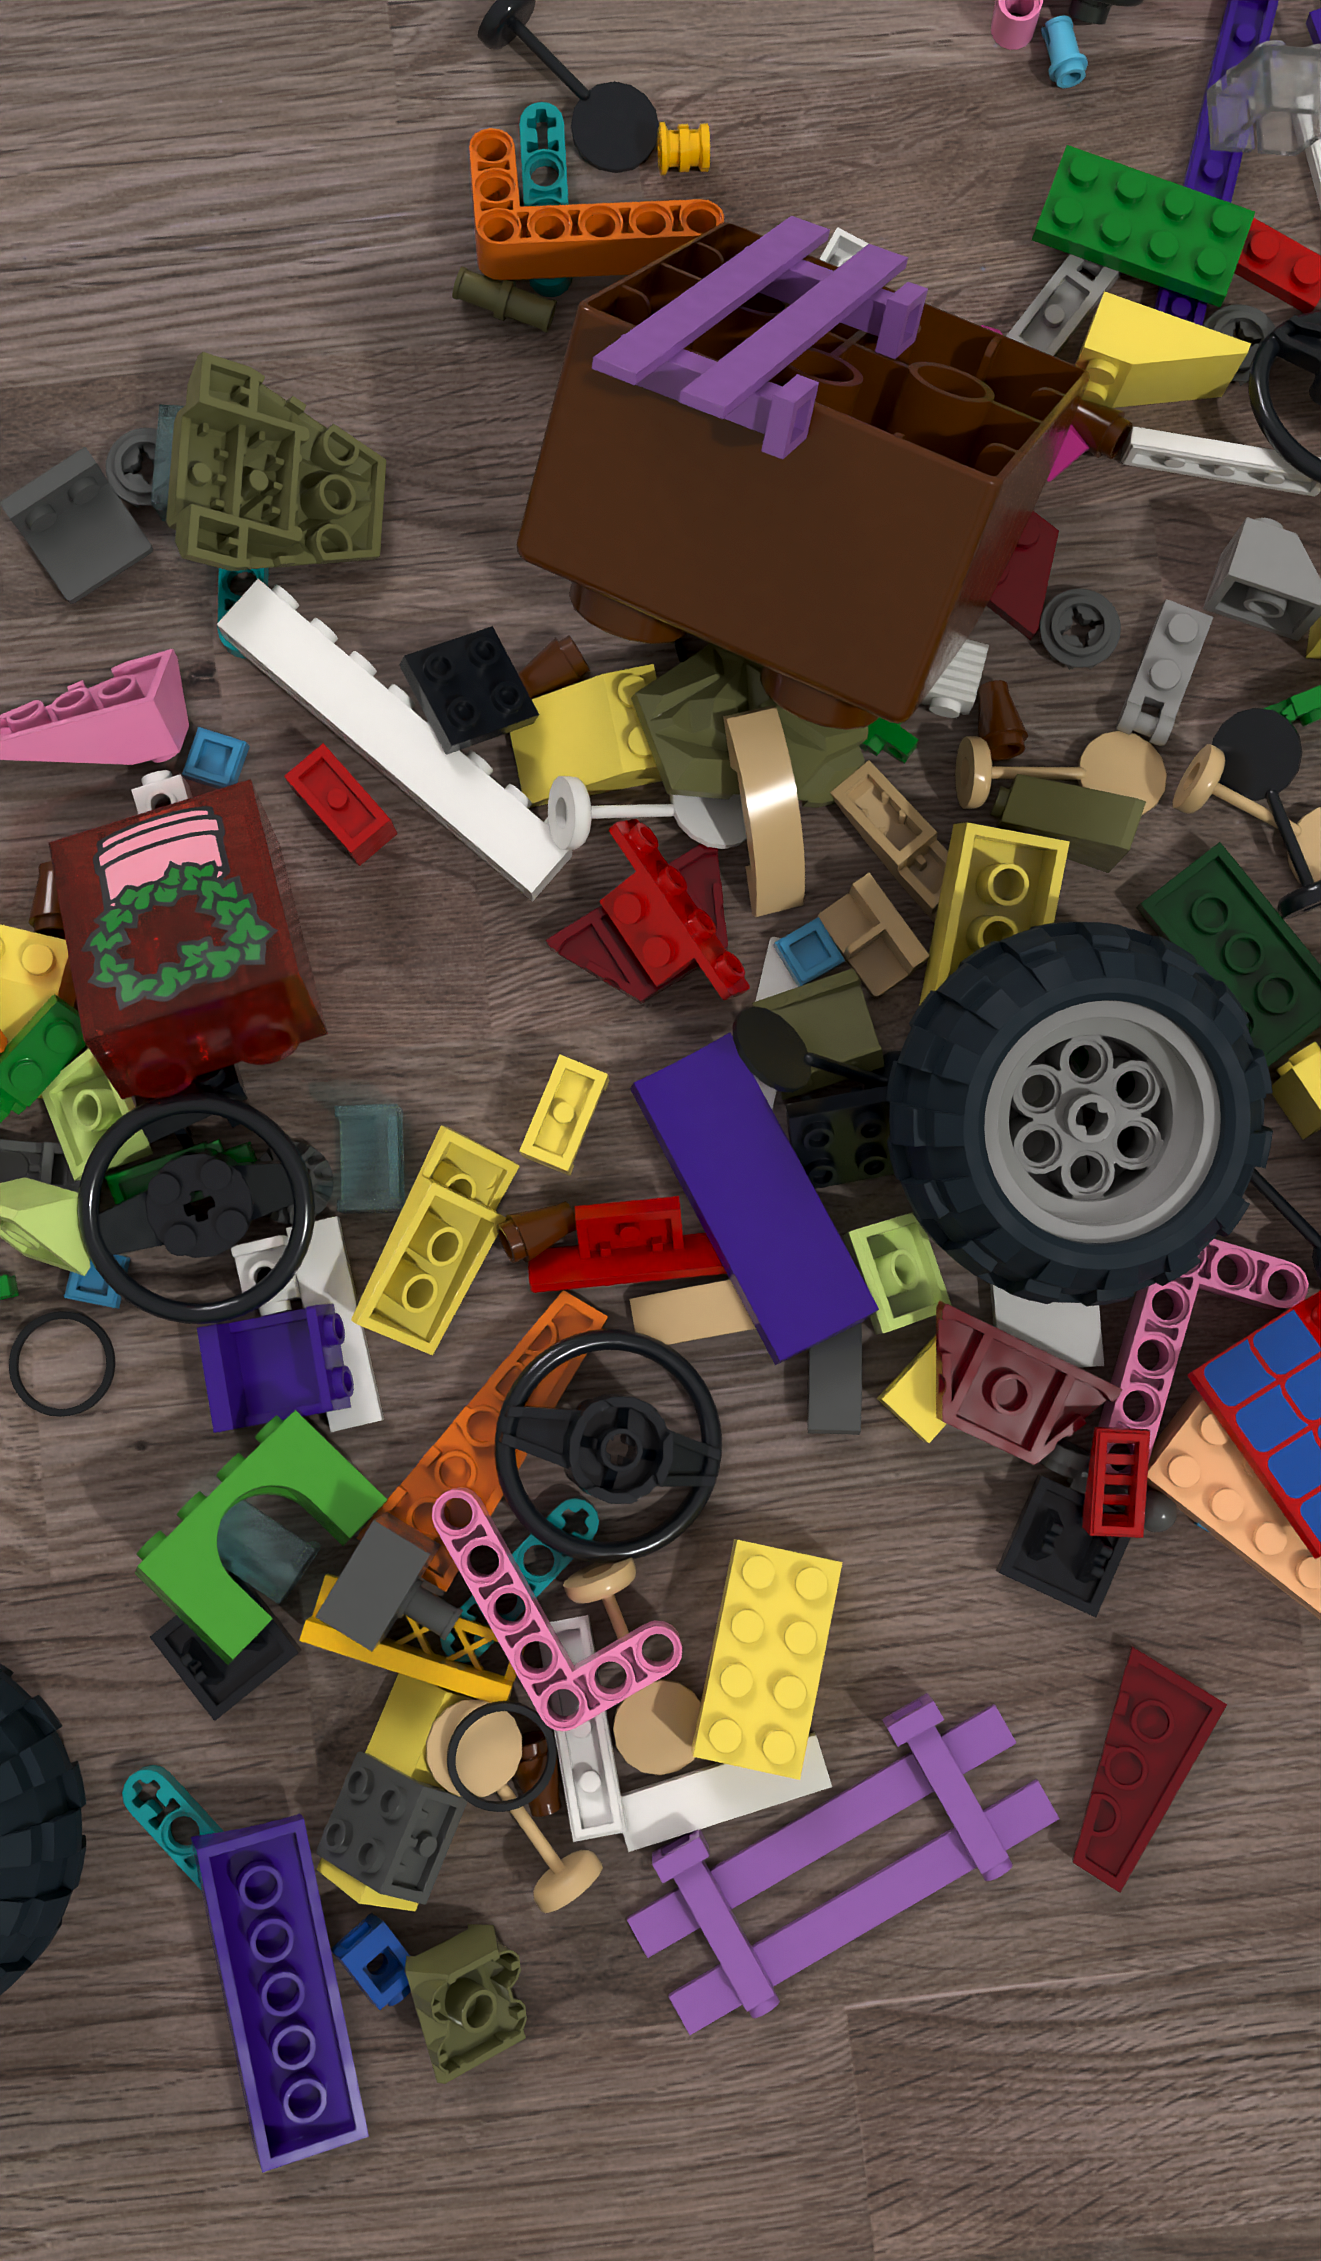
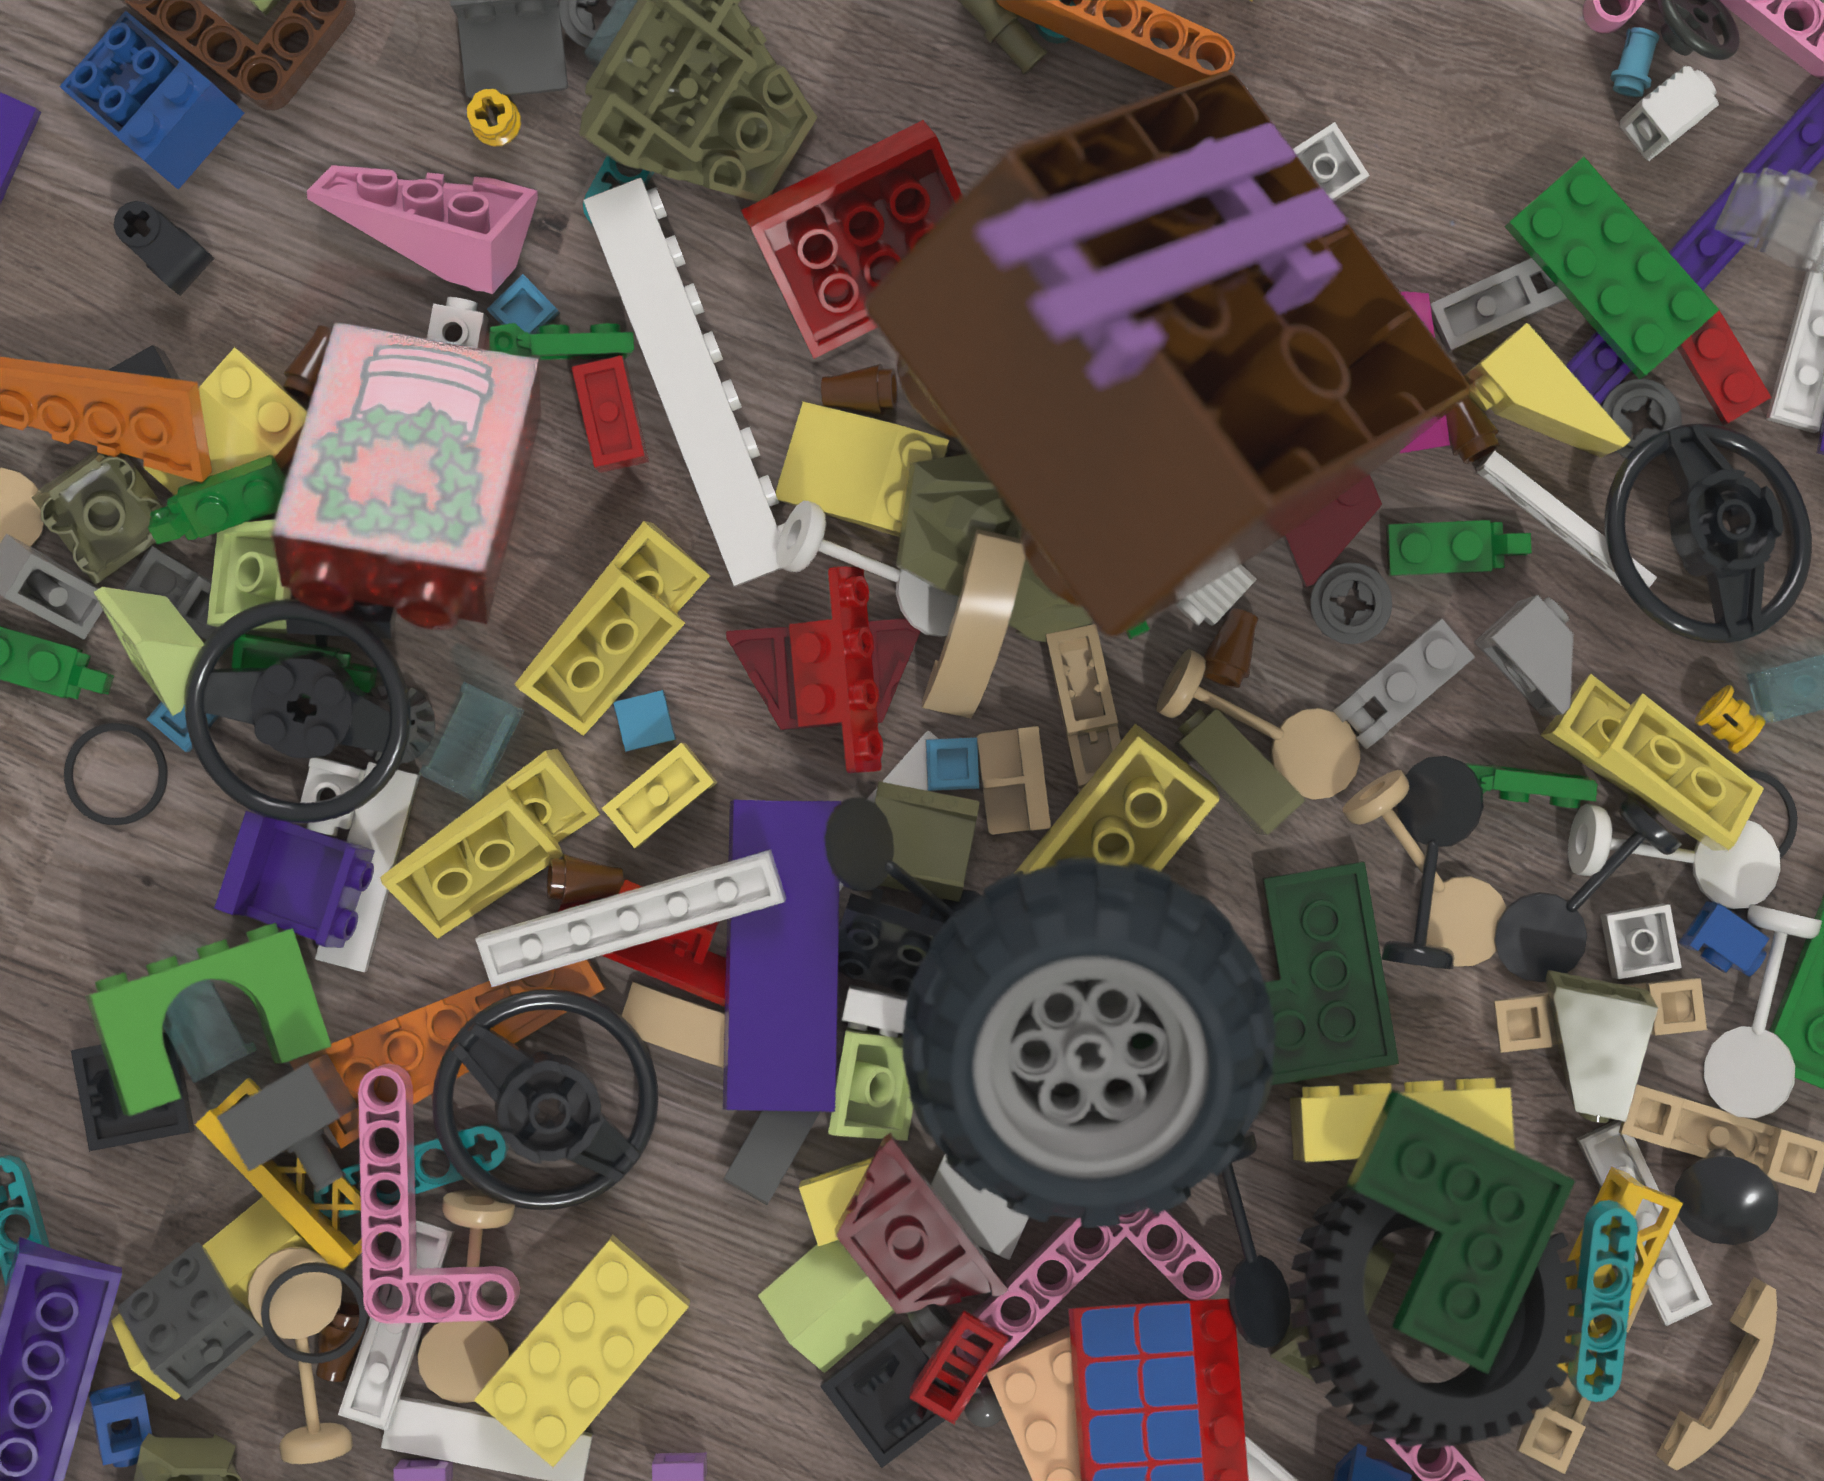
camera: 30 degrees right, 5 degrees up
(97, 619) = (508, 121): none -> yellow bush
(268, 764) = (557, 342): none -> green hinge
(444, 991) = (614, 629): none -> light yellow slope
(457, 541) = (849, 228): none -> red slope
(469, 690) = (775, 375): black plate -> none
(515, 1060) = (644, 720): none -> dark azure tile
(598, 1236) = (631, 918): none -> white tile
(868, 1200) = (875, 1009): none -> white piece
(963, 1492) = (825, 1304): none -> yellowish green slope
(1118, 68) = (1669, 111): none -> white brick
(1139, 536) = (1451, 547): none -> green hinge

